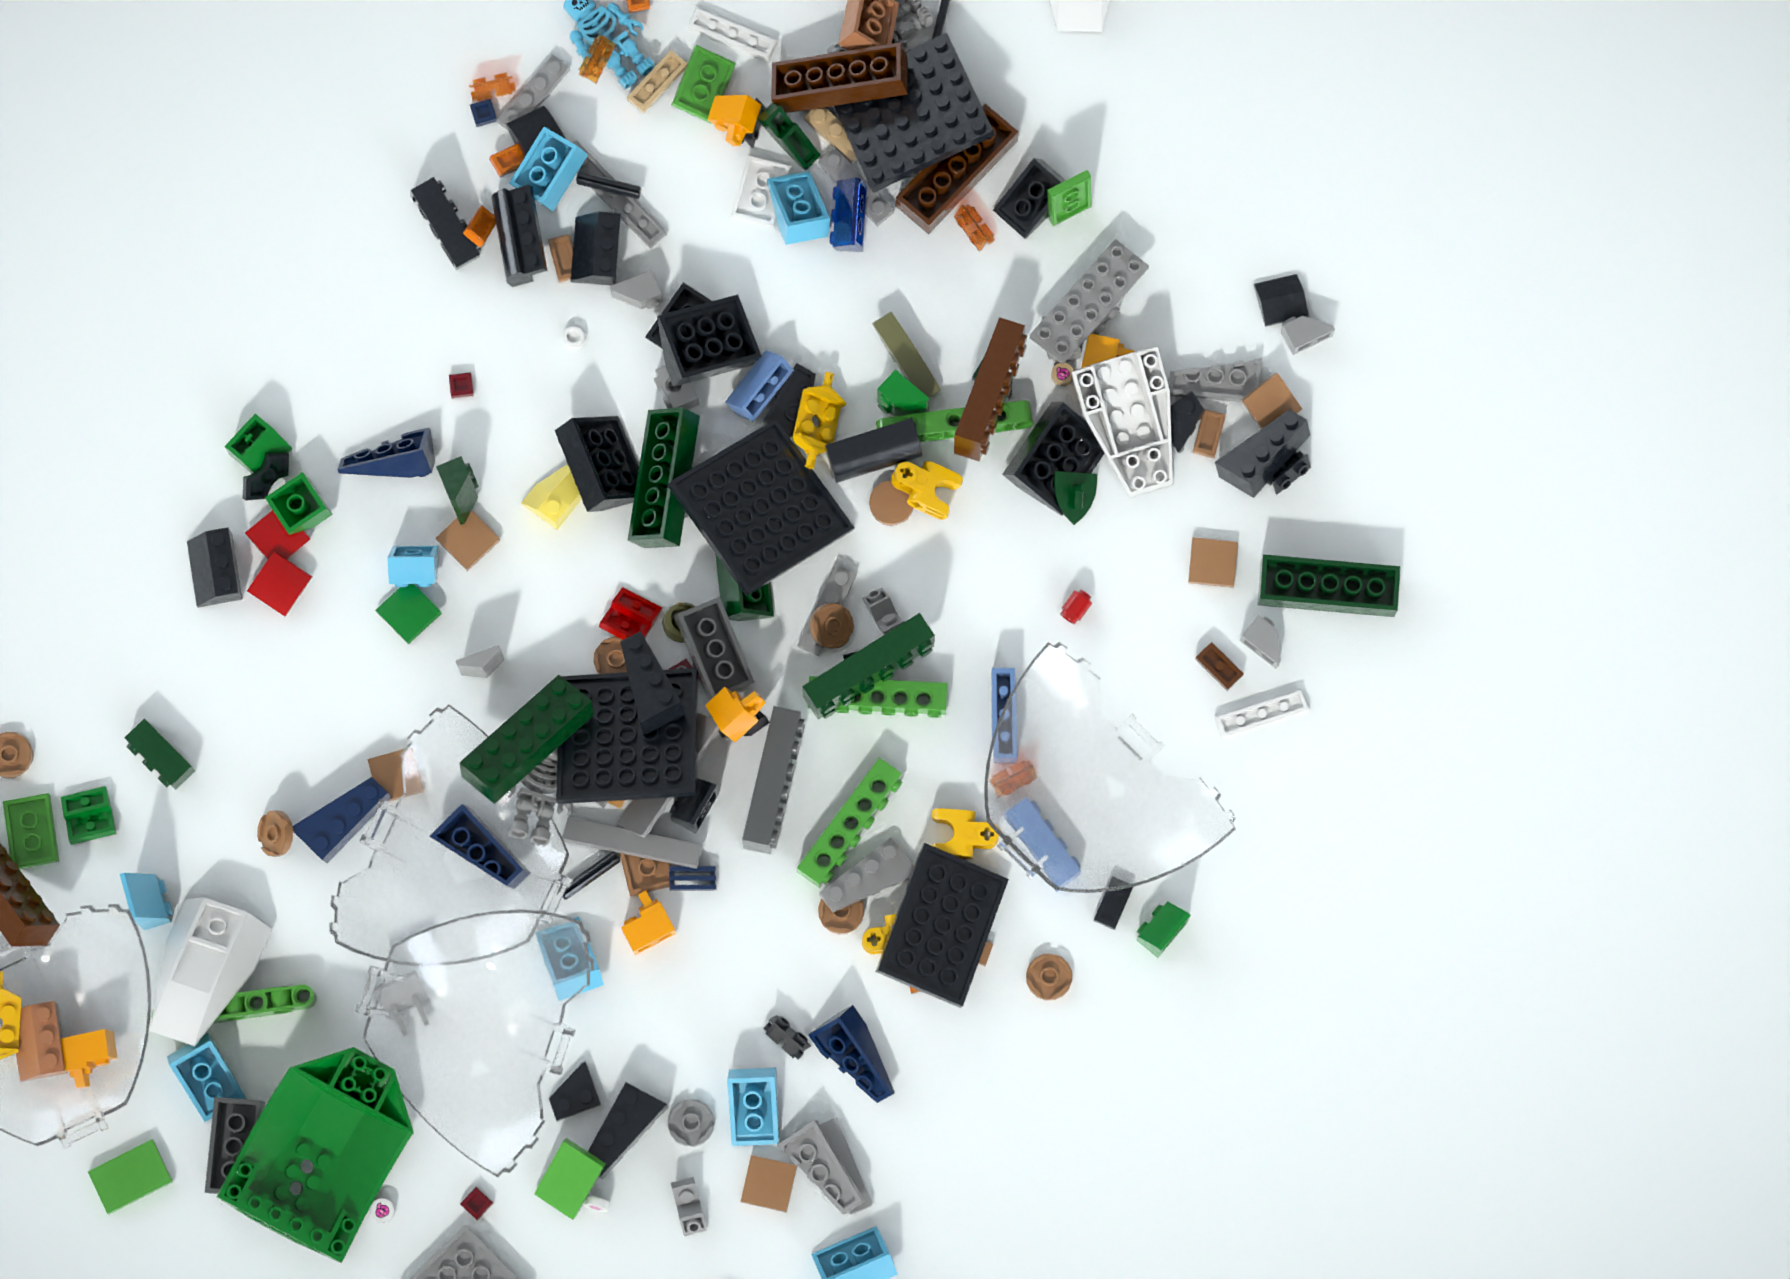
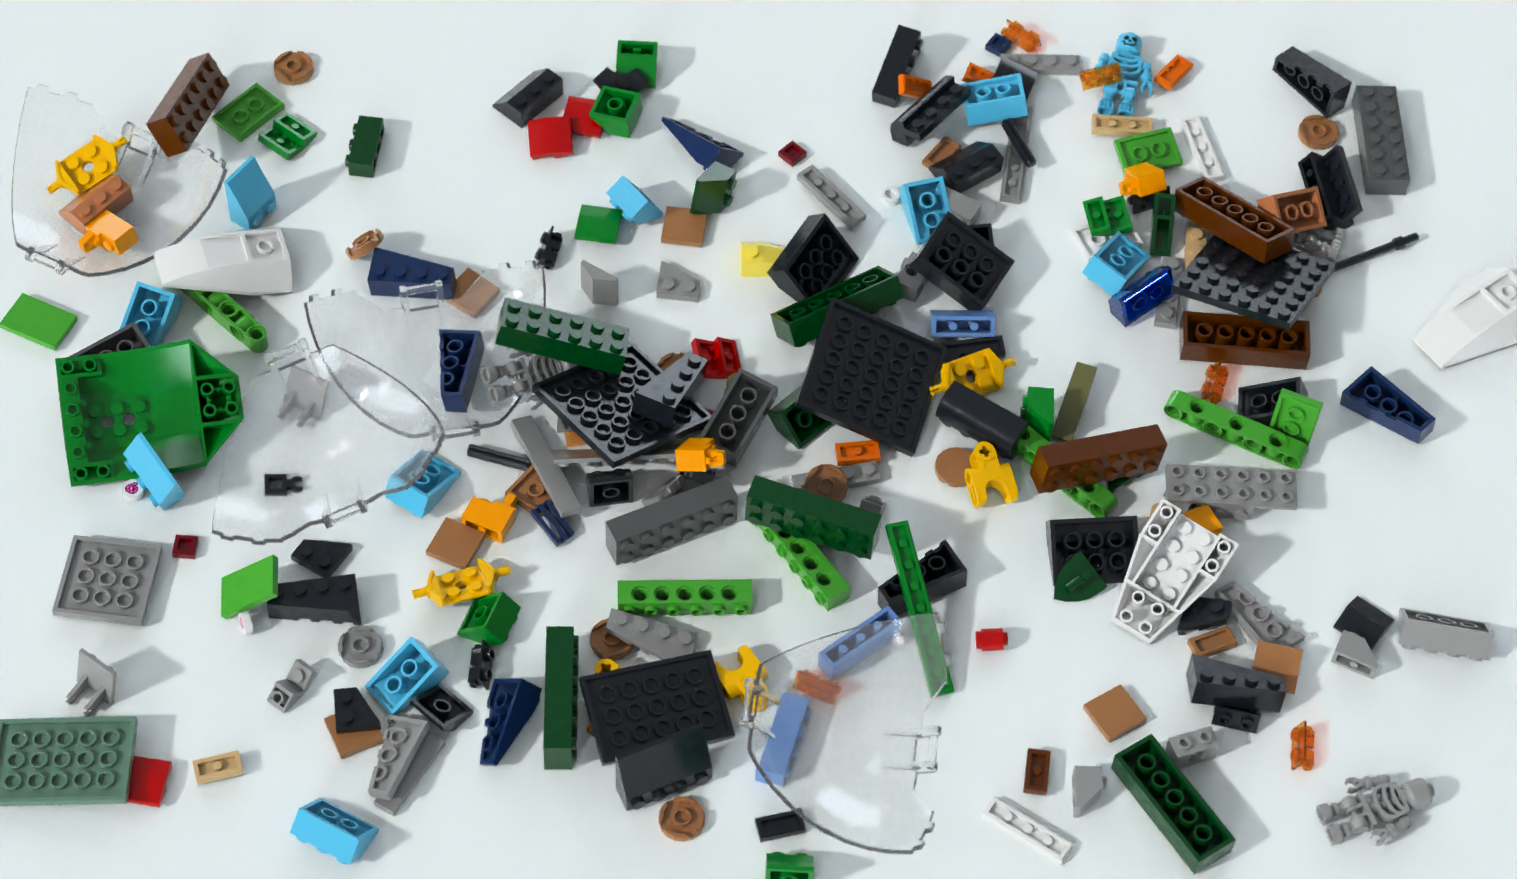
camera: 50 degrees right, 20 degrees down
(388, 1185) = (152, 473): none -> medium azure slope
(394, 668) = (549, 241): none -> black hinge
(477, 1074) = (286, 484): none -> black plate
(524, 591) = (676, 284): none -> light grey wing
(536, 389) = (831, 196): none -> light grey plate
(616, 319) = (924, 205): none -> medium azure slope
(649, 973) = (455, 543): none -> medium nougat tile
(697, 979) = (478, 582): none -> yellow plate
(736, 764) = (665, 491): none -> light grey wing
(744, 174) = (1107, 216): none -> green slope
(748, 999) = (490, 619): none -> green slope
(754, 1173) = (353, 712): none -> black wing
(804, 1097) = (442, 708): none -> black slope
(817, 573) = (857, 452): none -> orange plate
(872, 996) = (560, 698): none -> dark green brick
(985, 613) = (941, 573): none -> black wedge
(985, 631) = (911, 577): none -> green tile
(1005, 963) = (663, 767): none -> black slope
(1048, 240) = (1223, 425): none -> bright green beam
(1107, 108) = (1388, 406): none -> dark blue wedge
(1291, 529) = (1193, 747): none -> light grey brick
(1340, 247) = (1444, 634): none -> light grey slope
(1345, 437) = (1302, 738): none -> clear orange hinge
(1457, 397) = (1410, 796): none -> light grey piece

